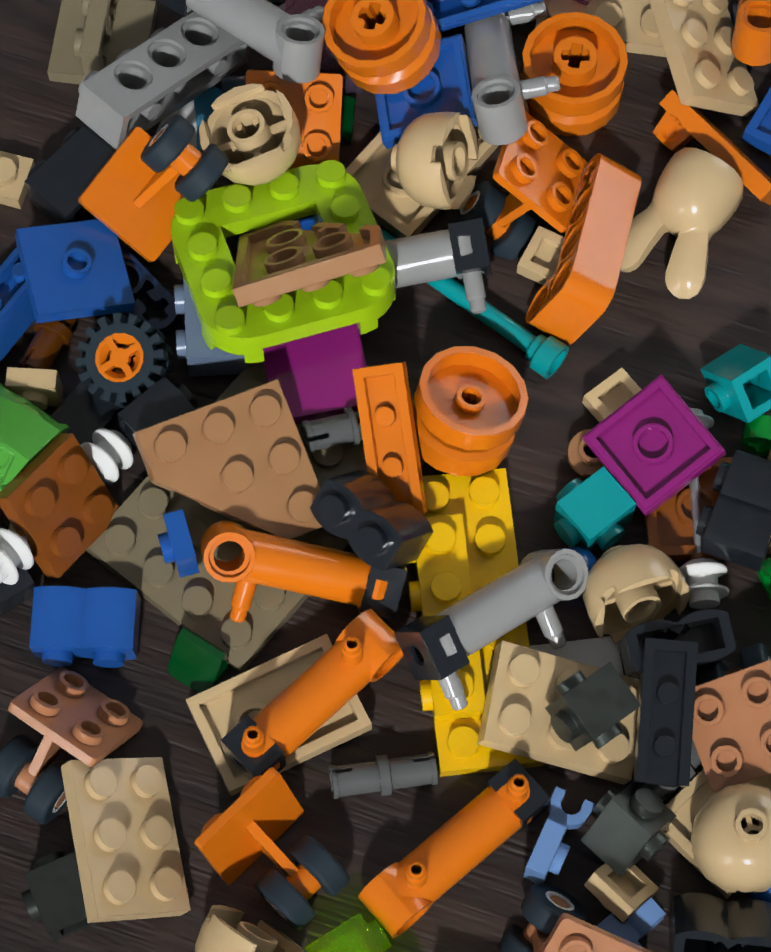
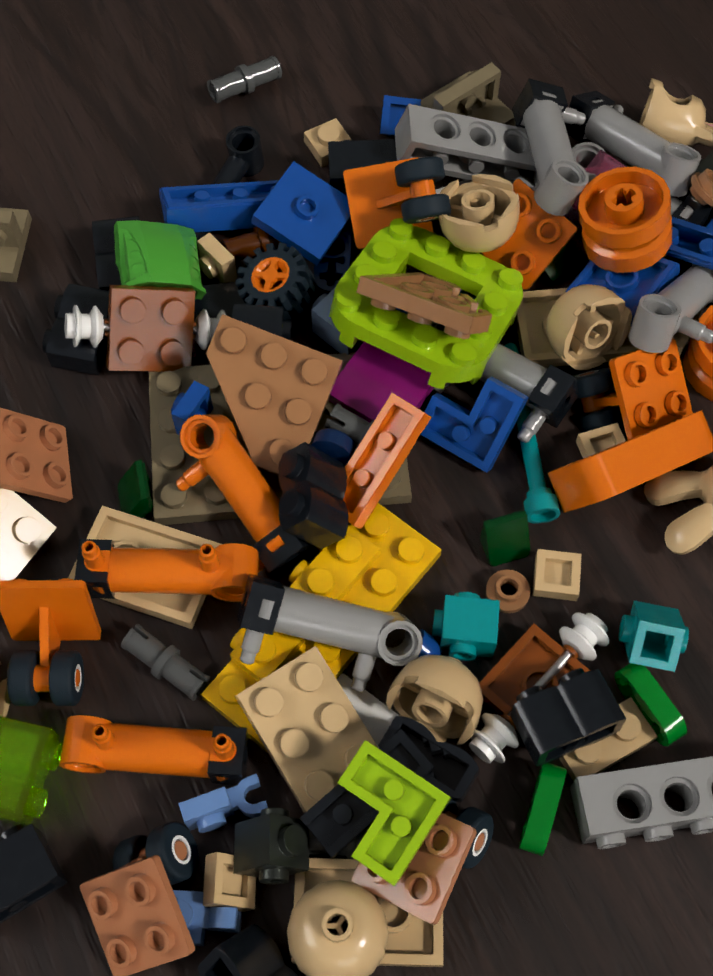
camera: 45 degrees right, 5 degrees down
(49, 95) = (392, 110): none -> blue plate
(85, 624) = (97, 411): blue brick -> none
(336, 460) = (335, 444): none -> dark blue tile
(438, 324) = (477, 433): none -> blue plate
(467, 410) = (447, 487): orange wheel -> none
(548, 411) = (506, 538): none -> dark green slope
(591, 707) = (321, 740): pearl dark grey brick -> none
(654, 445) = (547, 618): magenta tile -> none
(713, 691) = (405, 806): none -> lime plate

